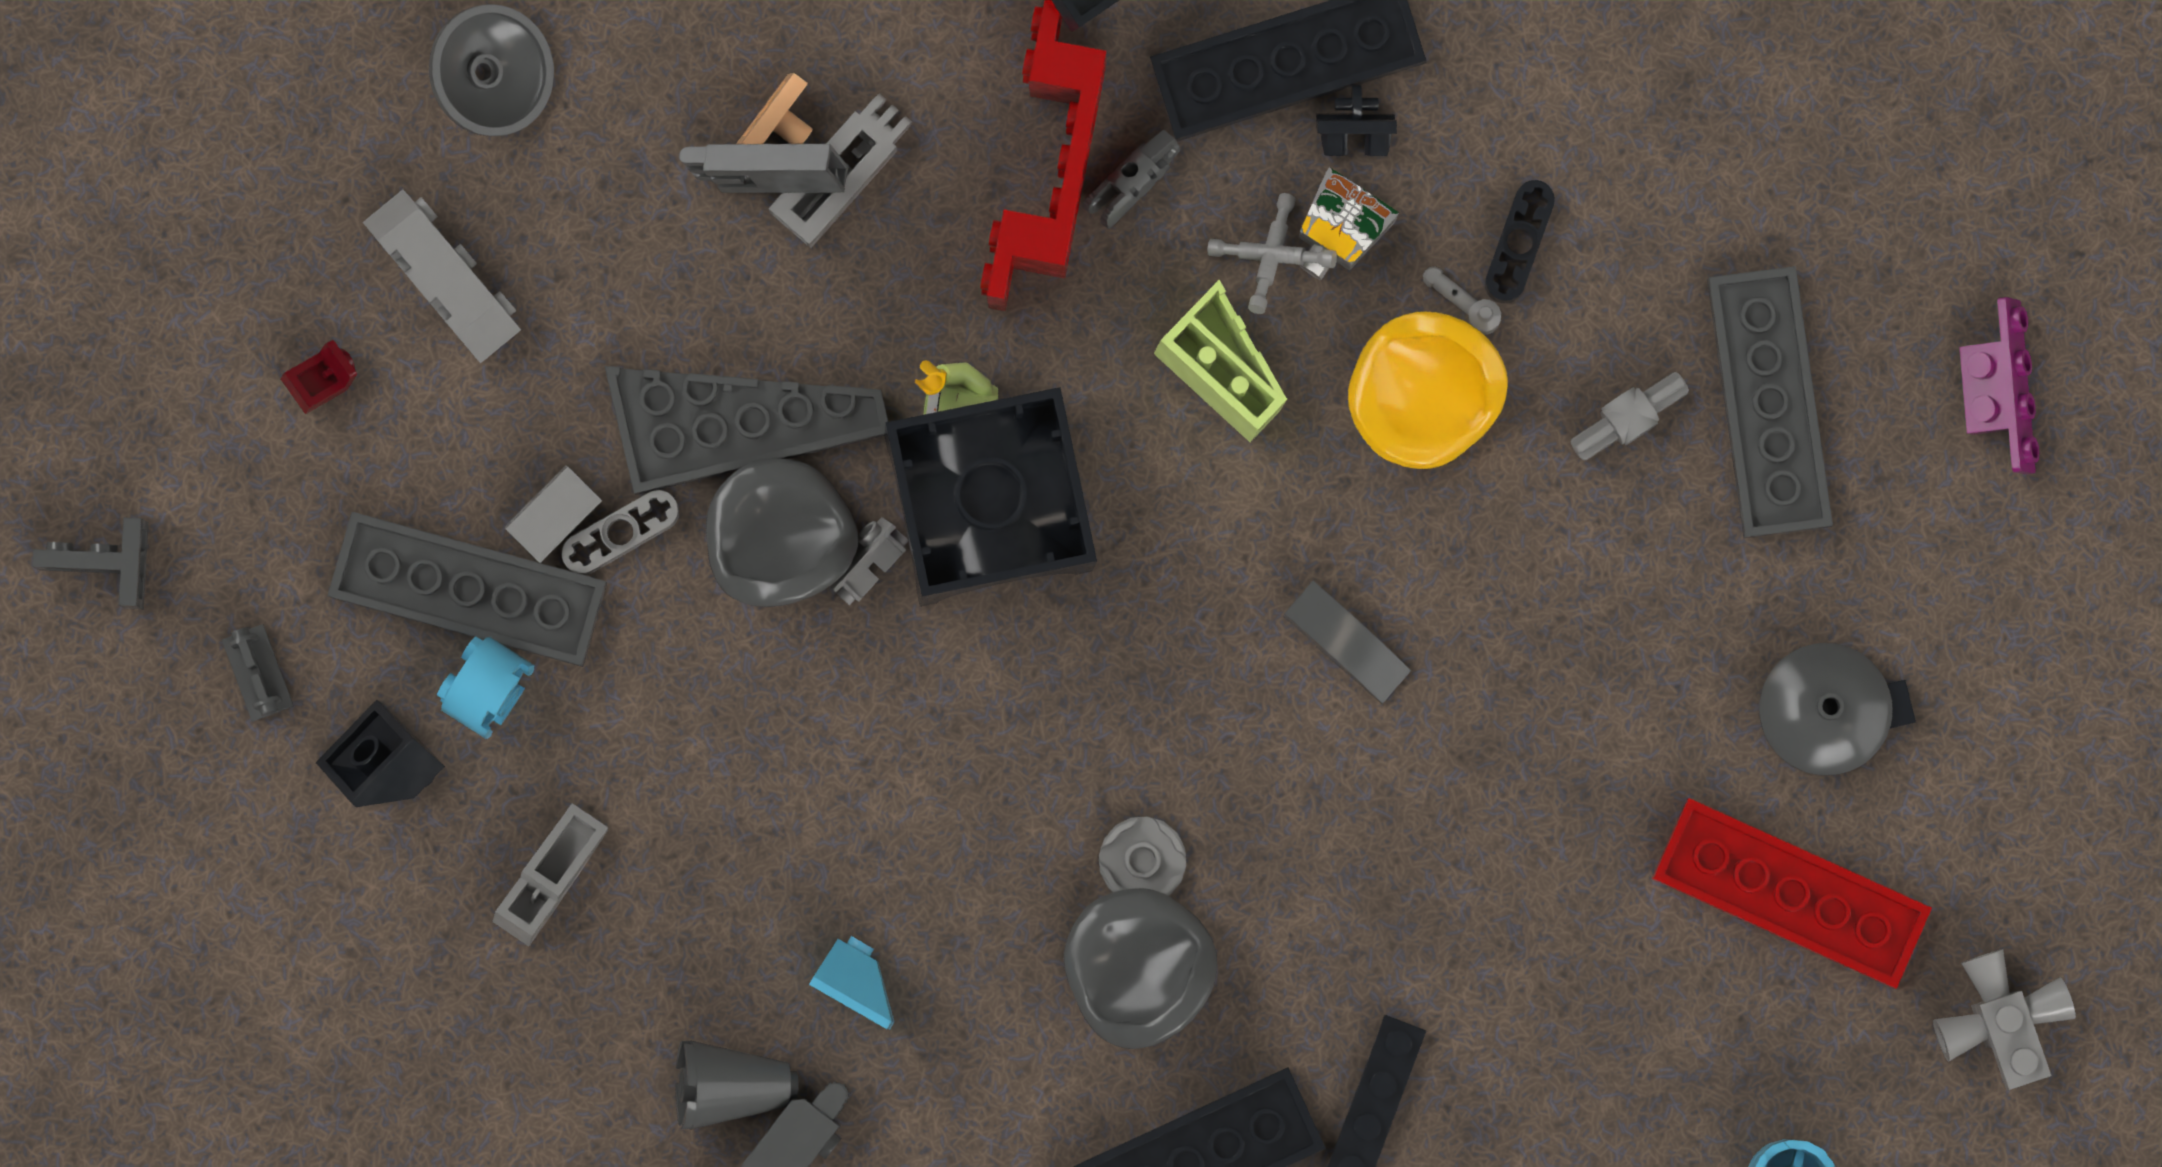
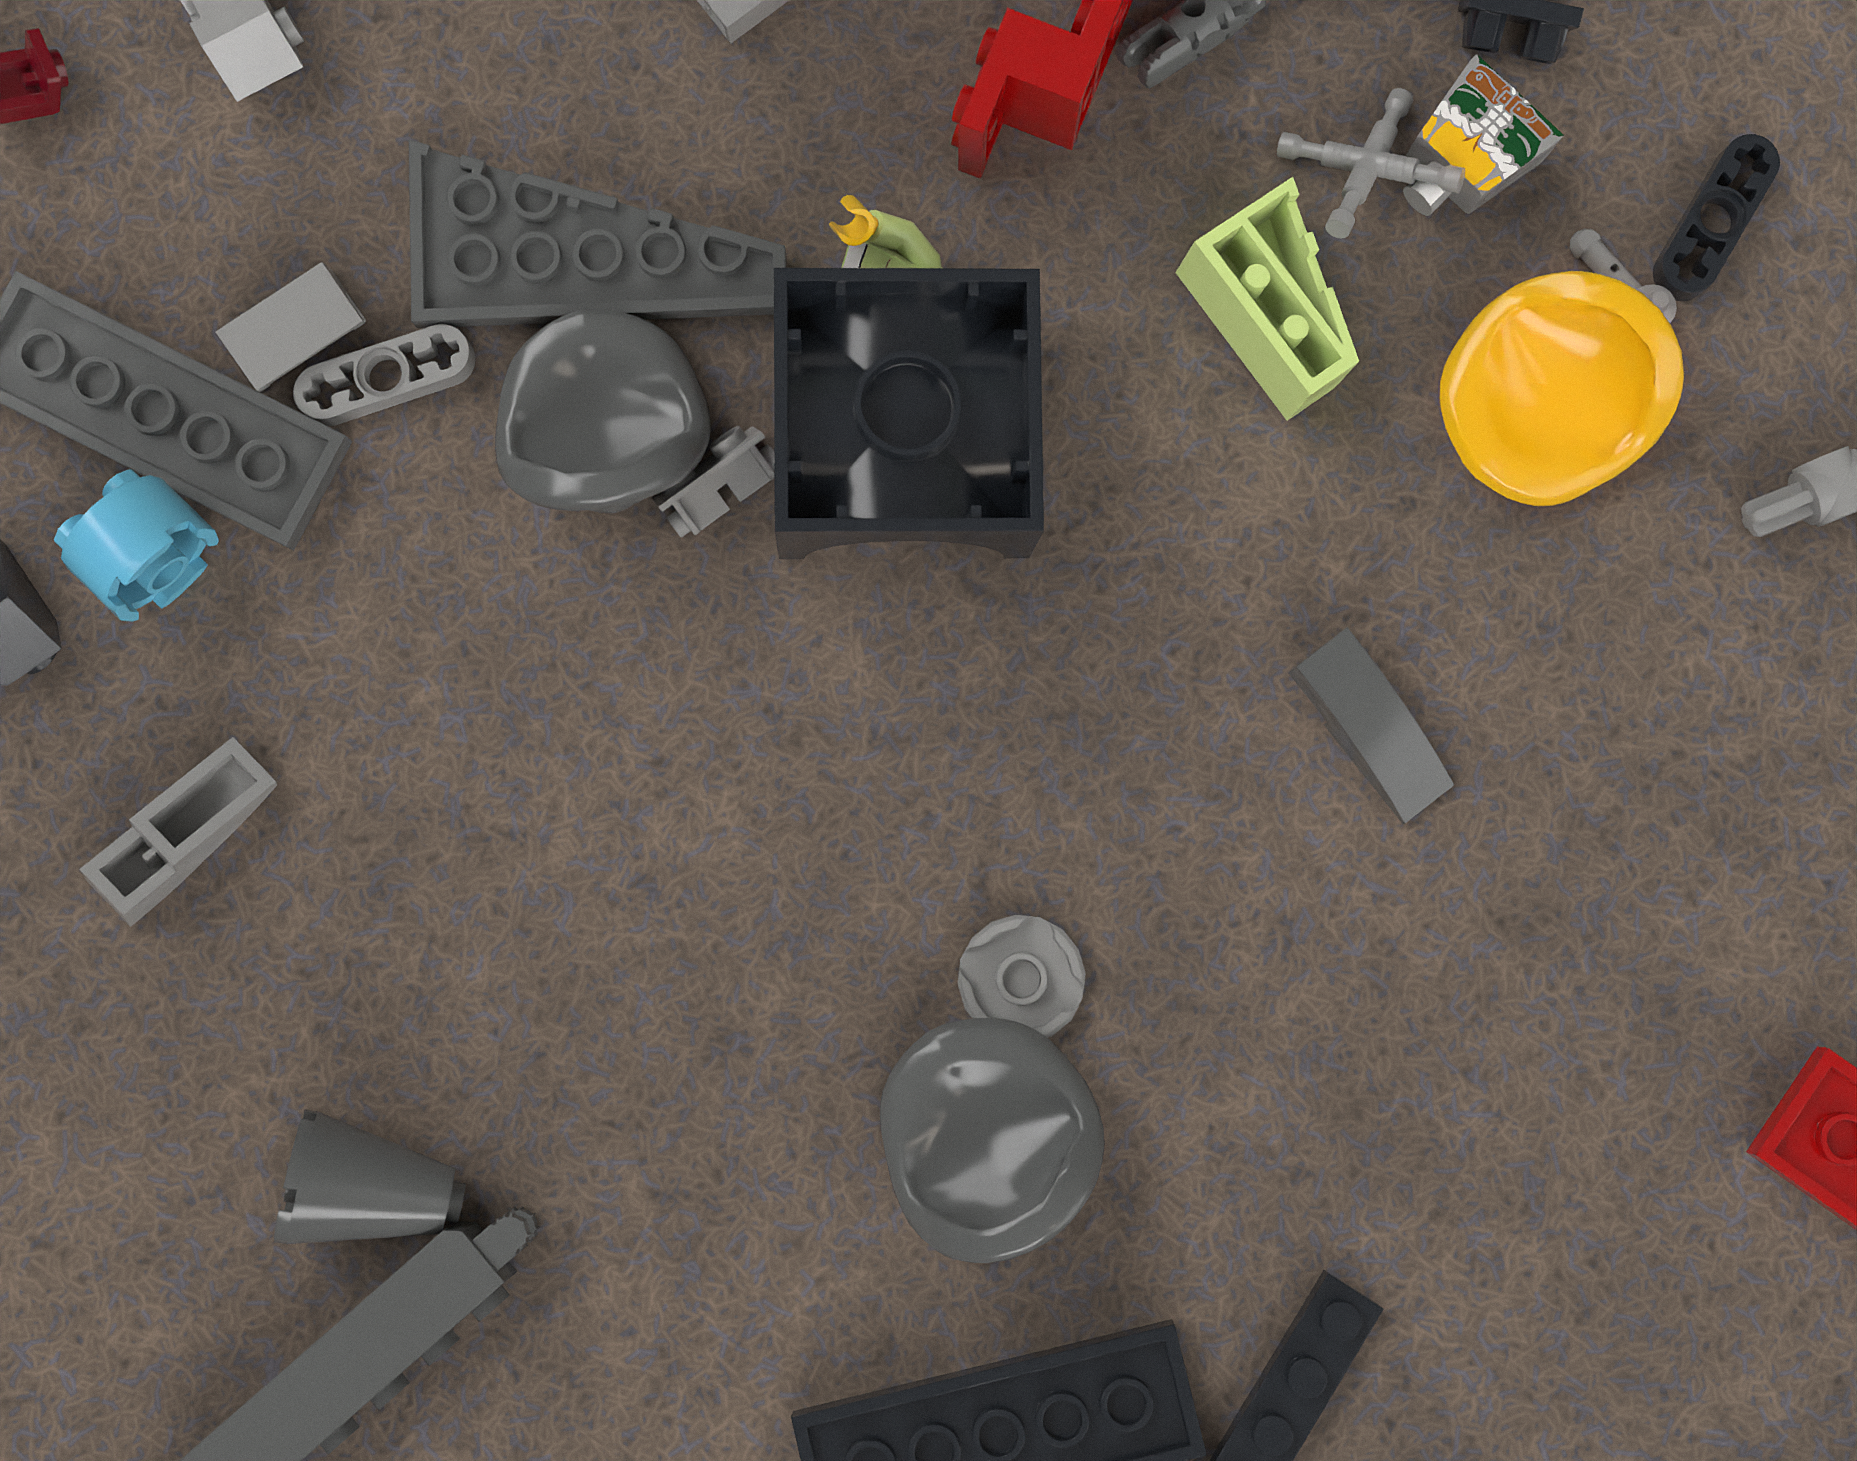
camera: 15 degrees right, 0 degrees up
(855, 981) = (572, 1078): medium azure slope -> none

